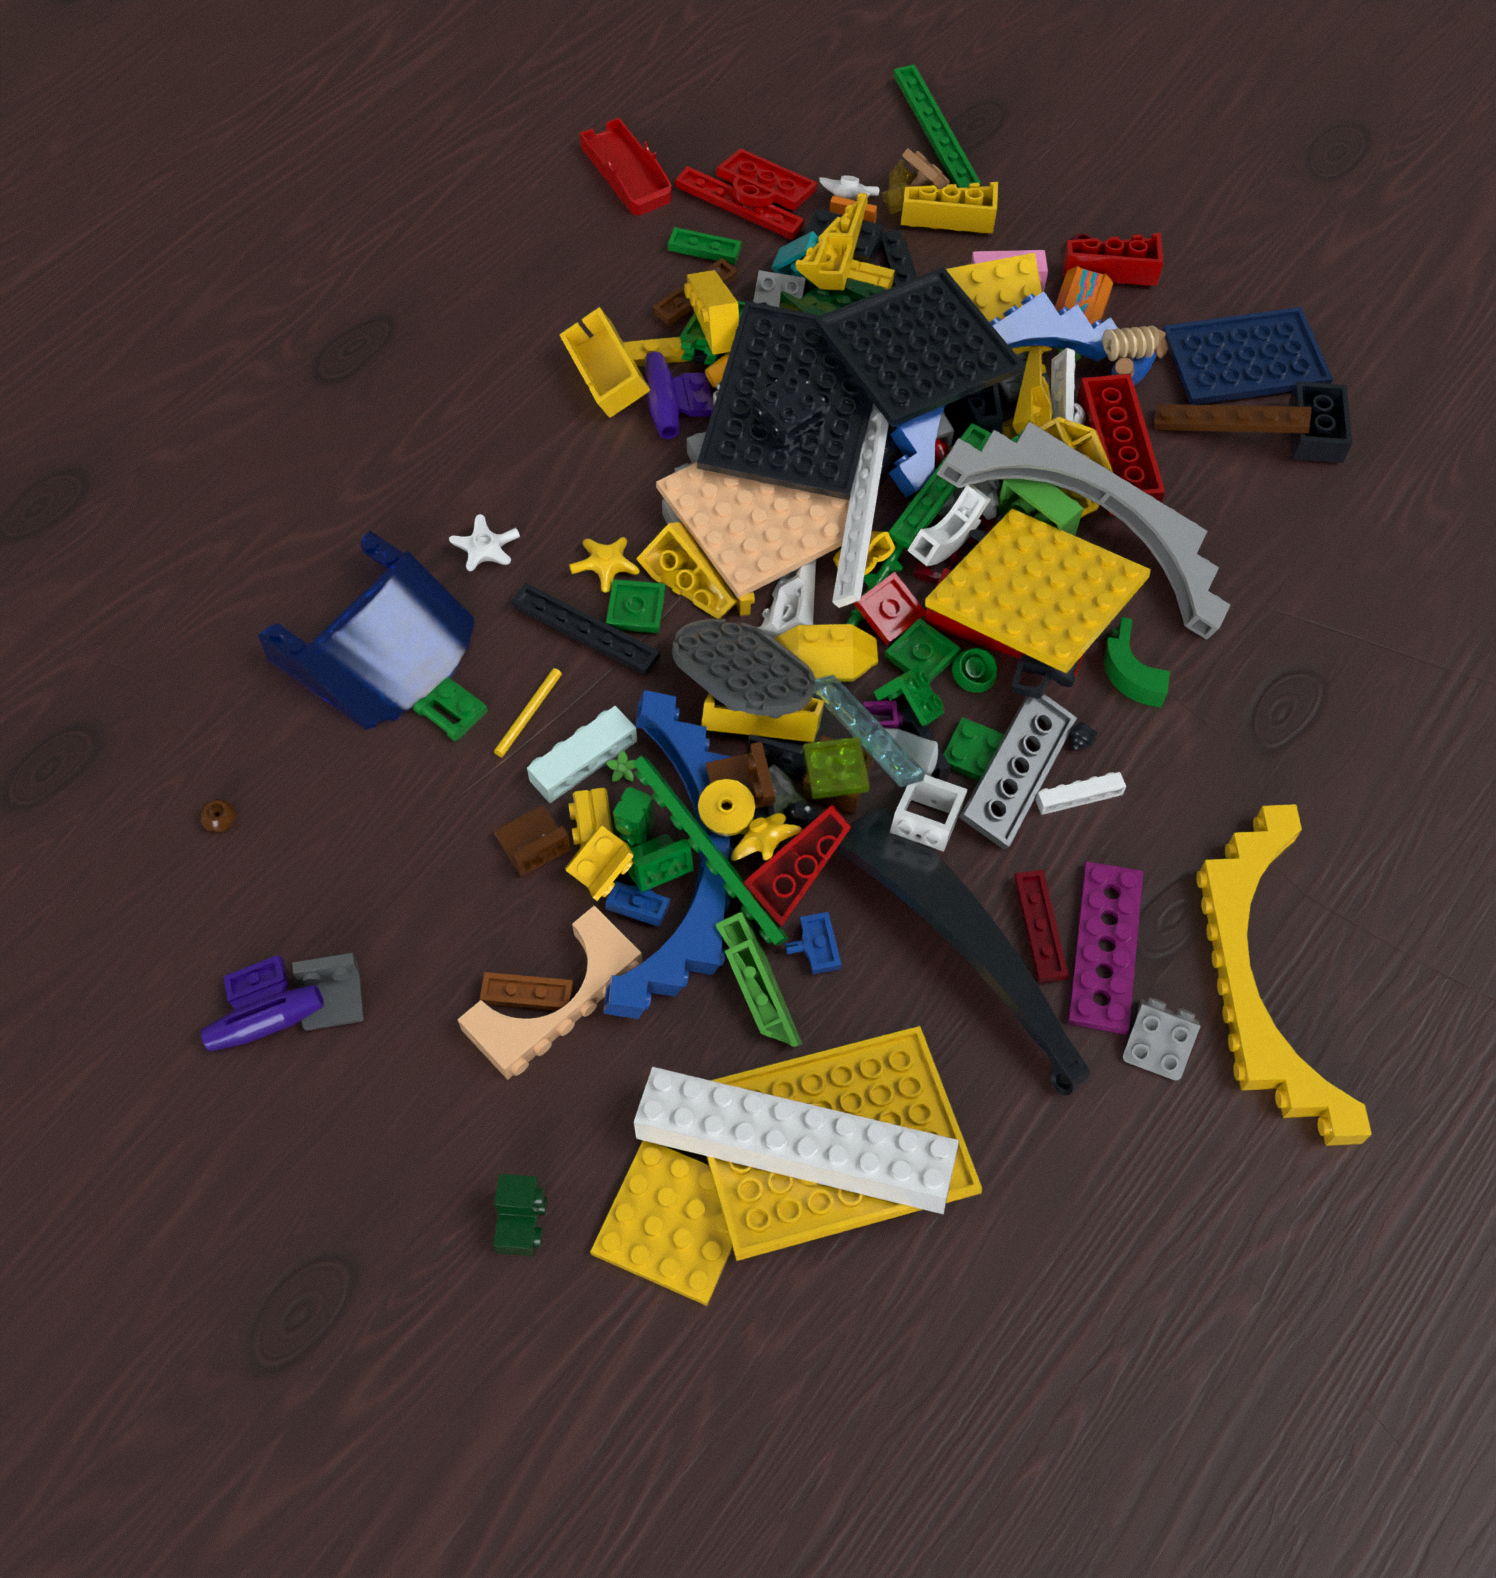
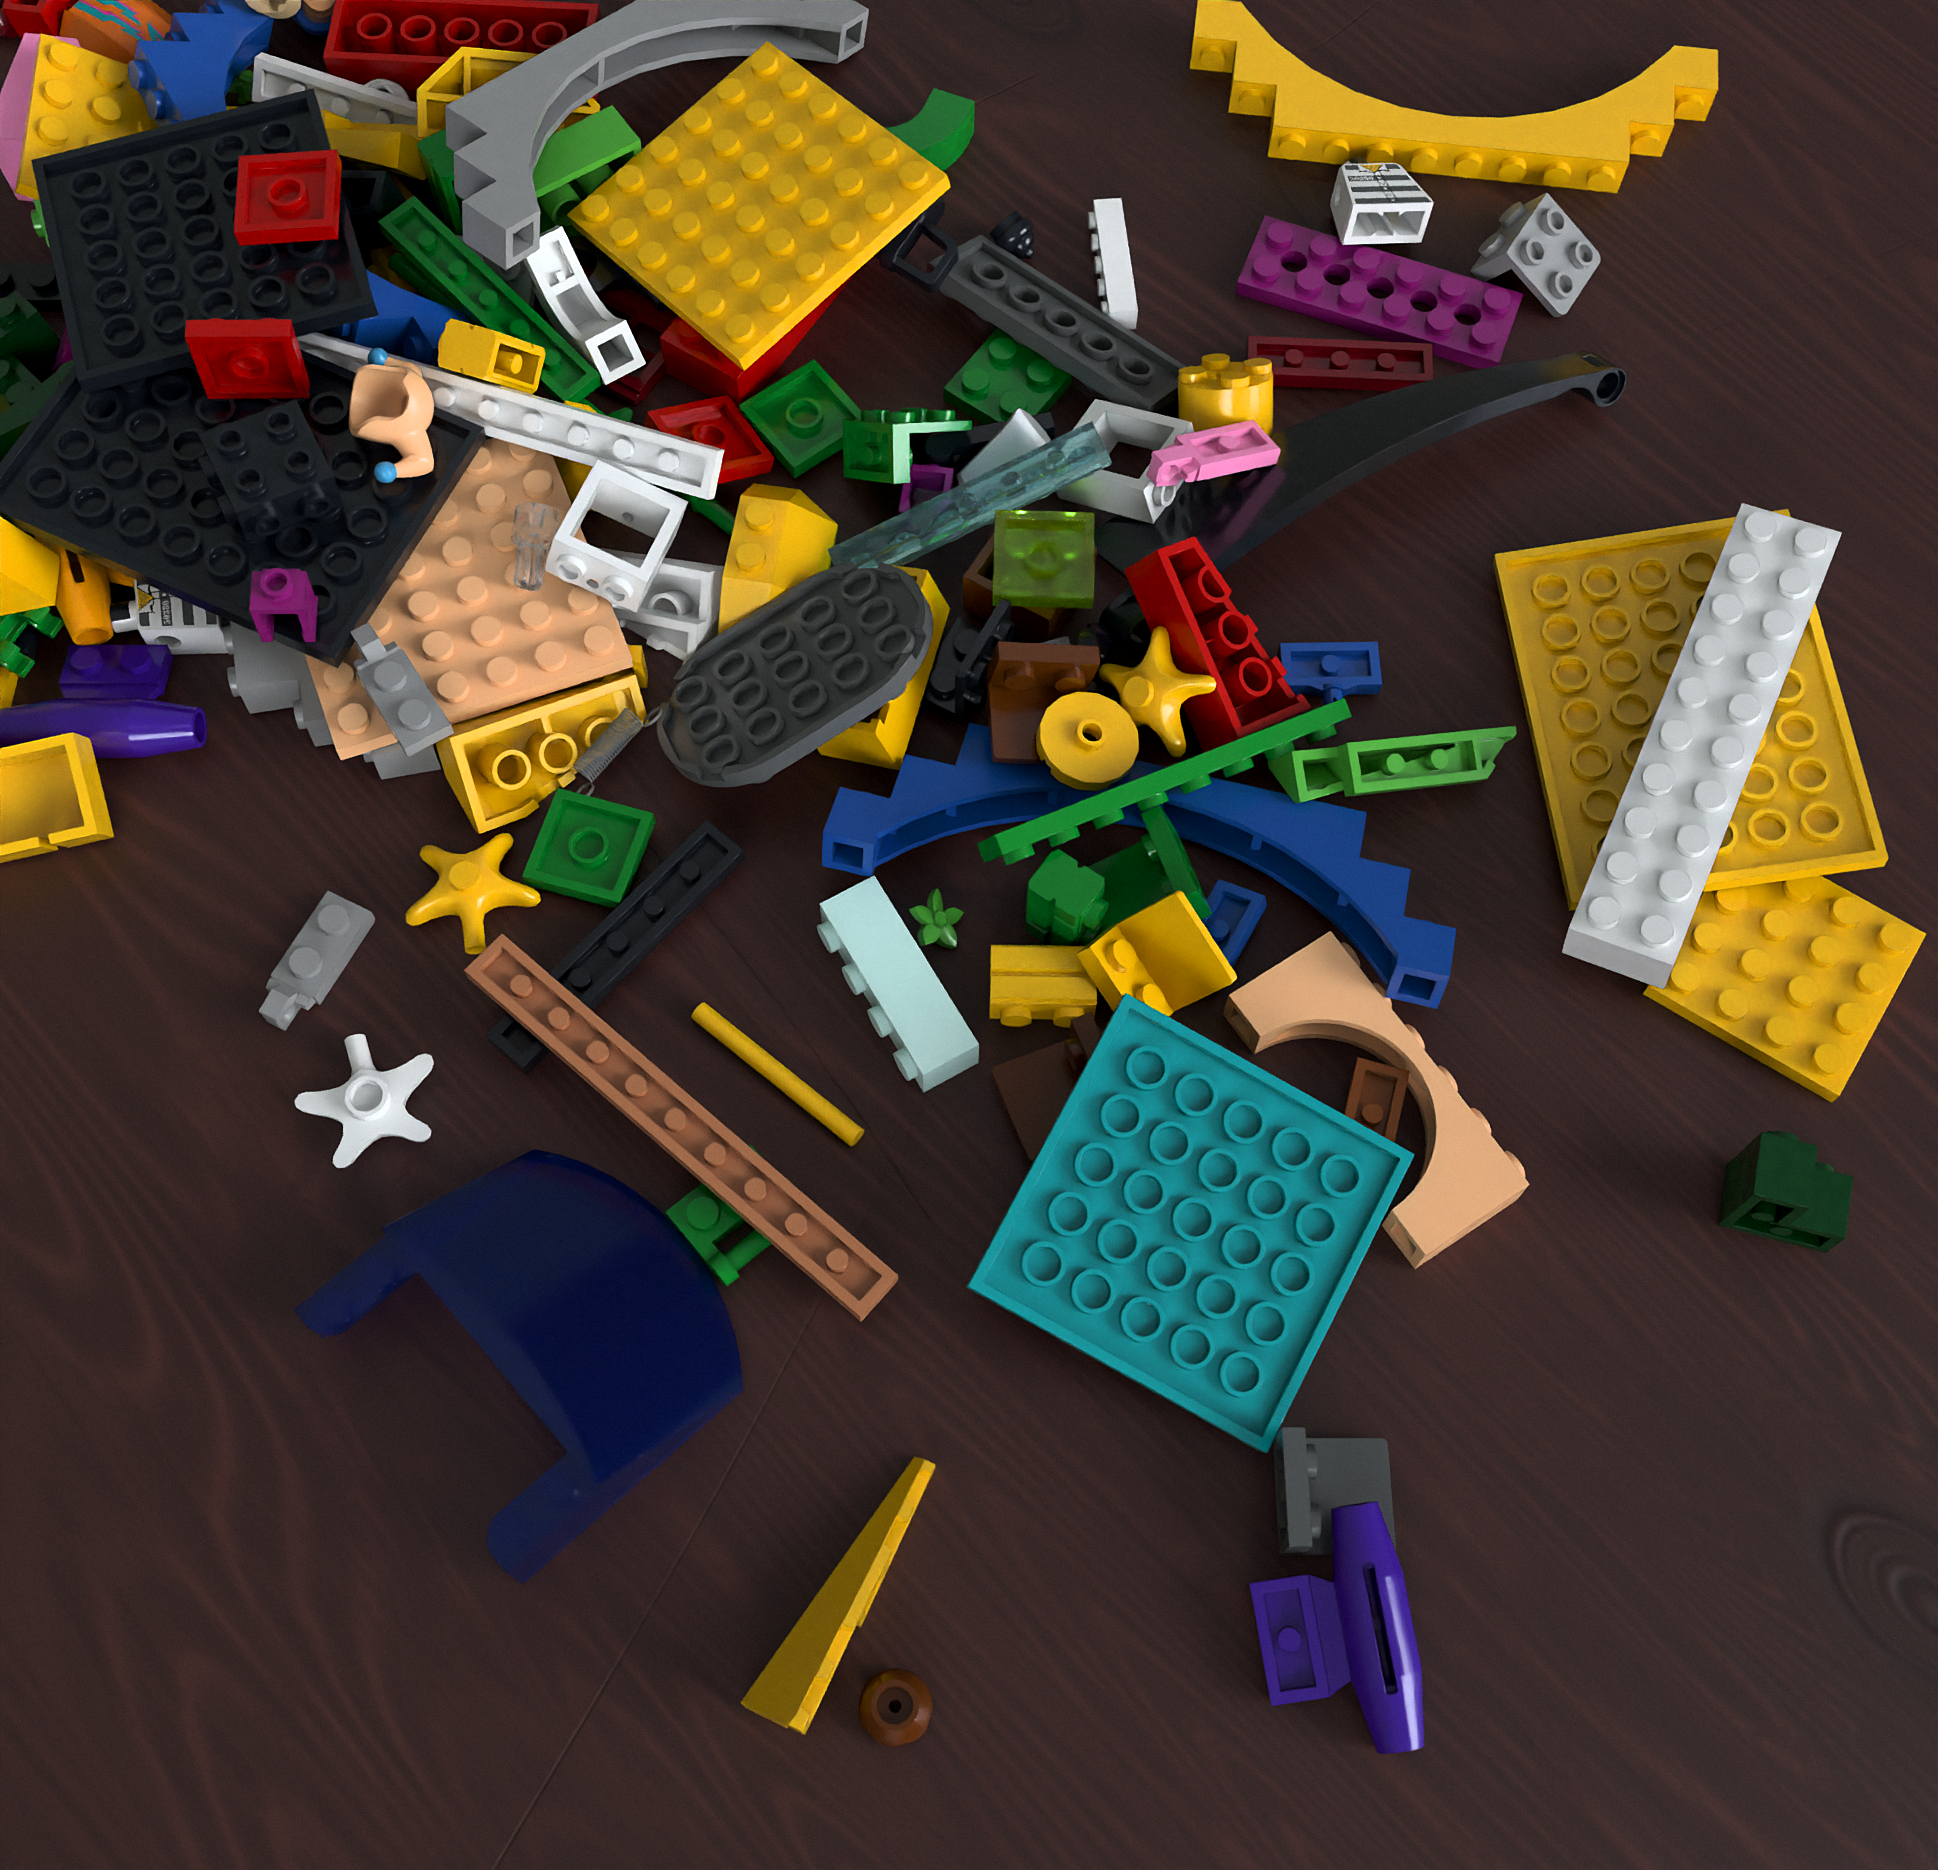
camera: 80 degrees left, 5 degrees up
(265, 786) = (807, 1659): none -> yellow wedge
(461, 901) = (1192, 1222): none -> teal plate
(483, 669) = (683, 1128): none -> nougat plate
(558, 509) = (315, 958): none -> light grey hinge
(688, 495) = (398, 693): none -> light grey hinge
(693, 601) = (613, 748): none -> light grey piece
(714, 430) = (282, 593): none -> magenta window
(792, 530) = (533, 534): none -> clear piece
(796, 589) = (632, 504): none -> white window
(838, 451) = (393, 408): none -> light nougat piece
(844, 378) = (248, 358): none -> red plate
(893, 487) = (490, 356): none -> yellow brick
(928, 844) = (1213, 454): none -> bright pink hinge
(942, 368) = (288, 197): none -> red plate
(975, 670) = (855, 351): green hat -> none
(982, 856) = (1226, 392): none -> yellow brick
(1166, 928) = (1378, 204): none -> white torso

